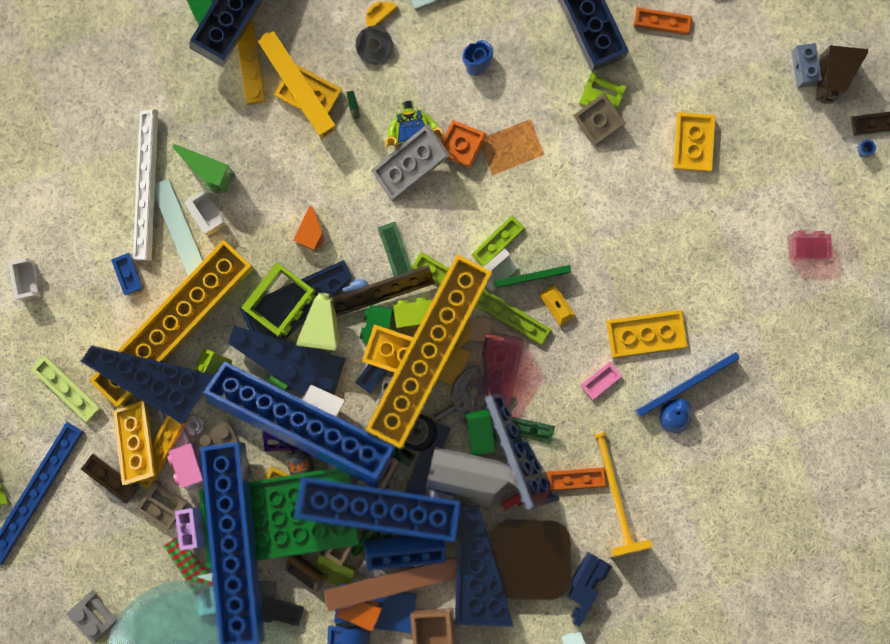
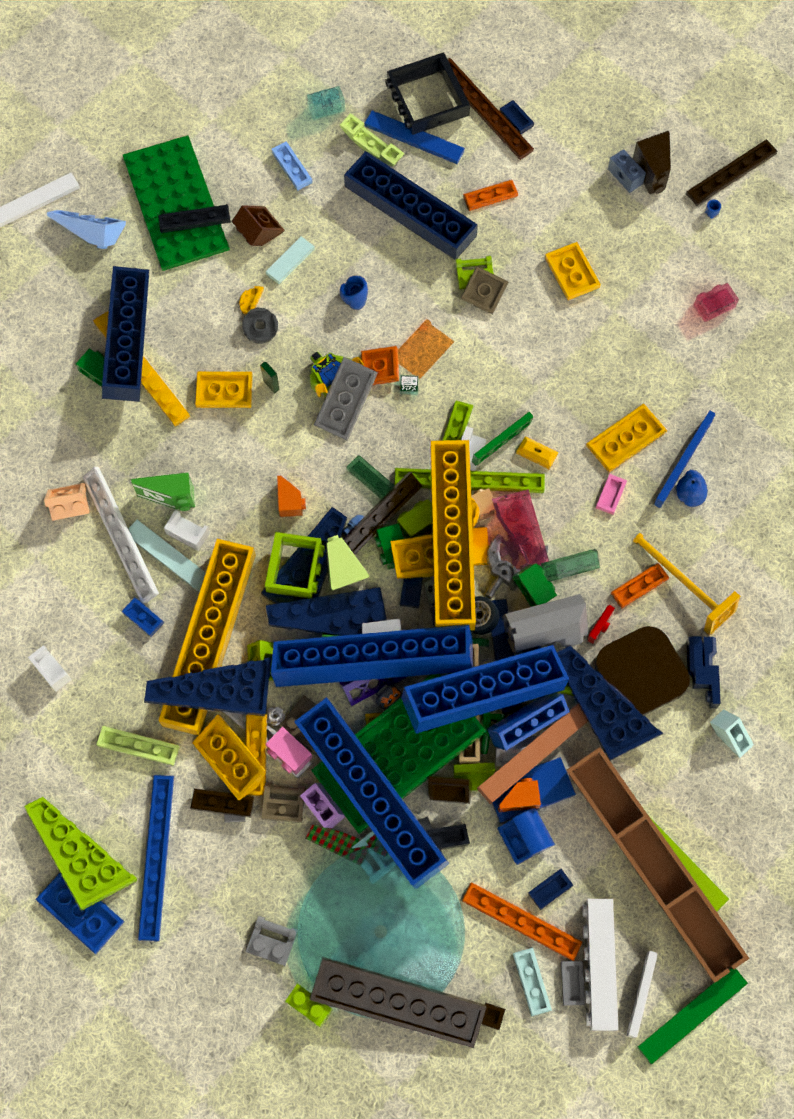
camera: 30 degrees left, 15 degrees down
(114, 128) = (67, 501): none -> light nougat bracket
(297, 84) = (212, 385): yellow brick -> none
(478, 176) = (409, 384): none -> tile
(520, 457) = (581, 584): dark blue wing -> none

